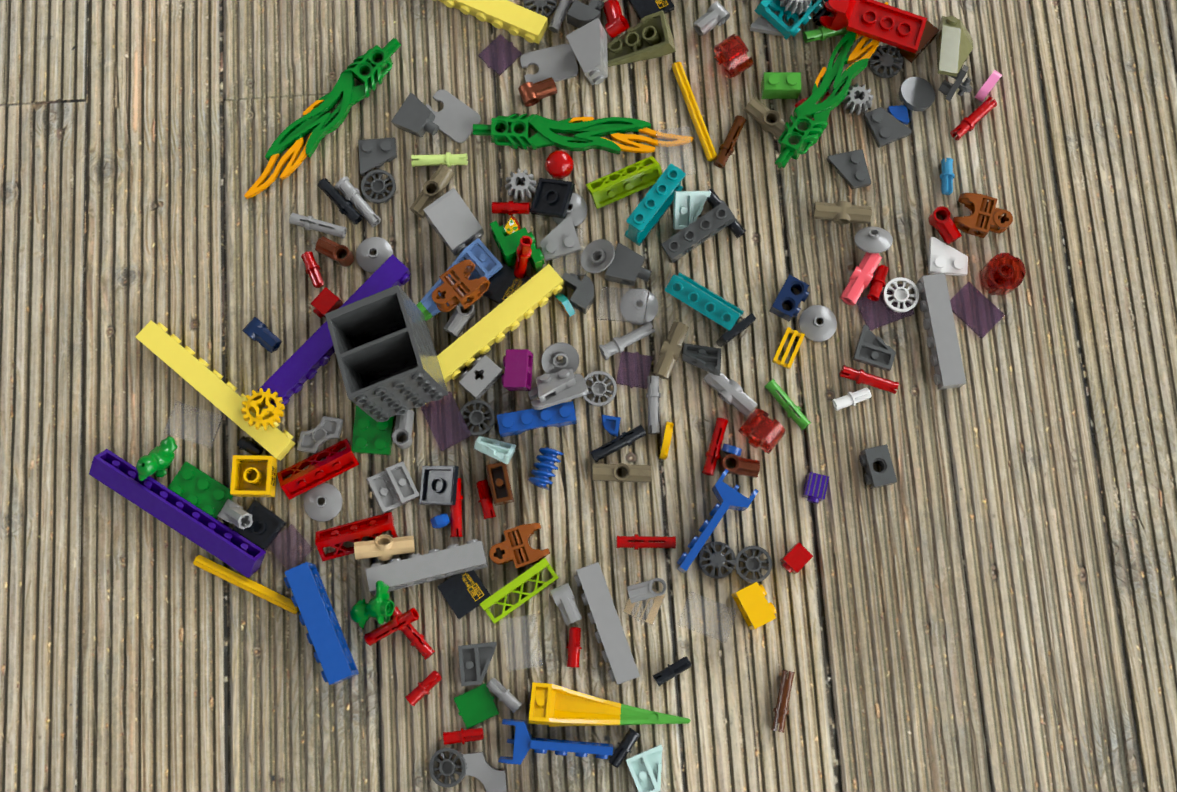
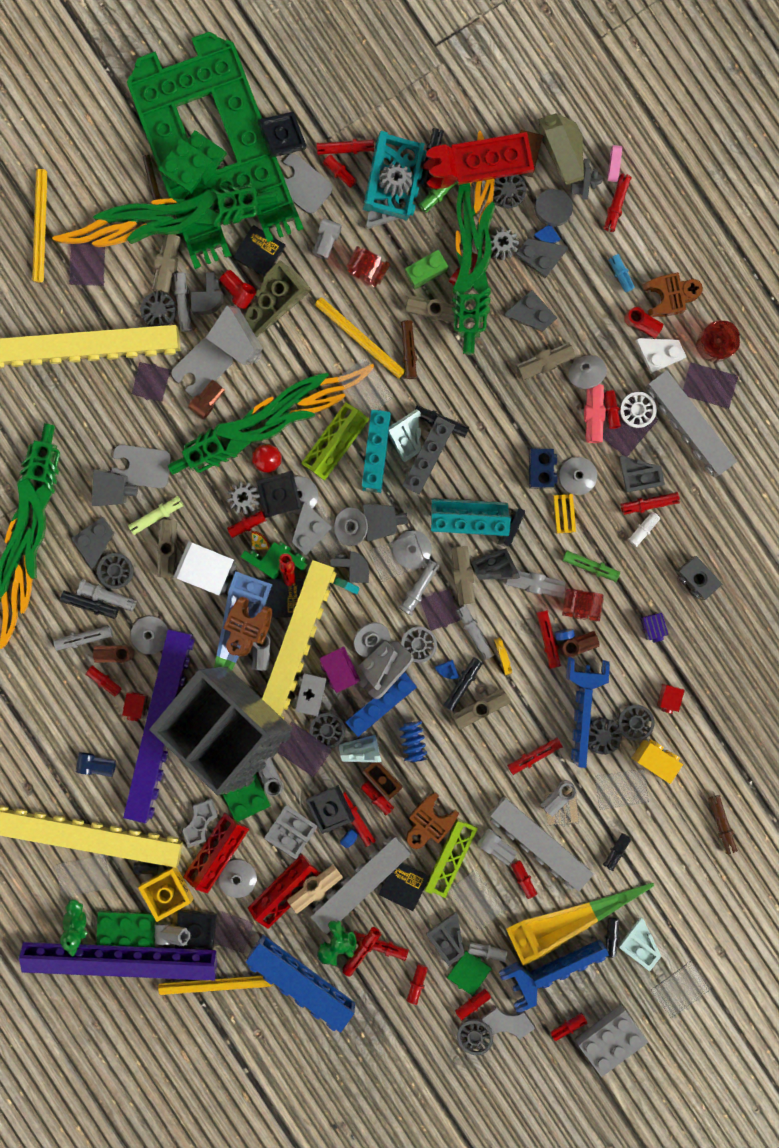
camera: 30 degrees left, 10 degrees up
(259, 401) = (136, 821): yellow gear -> none

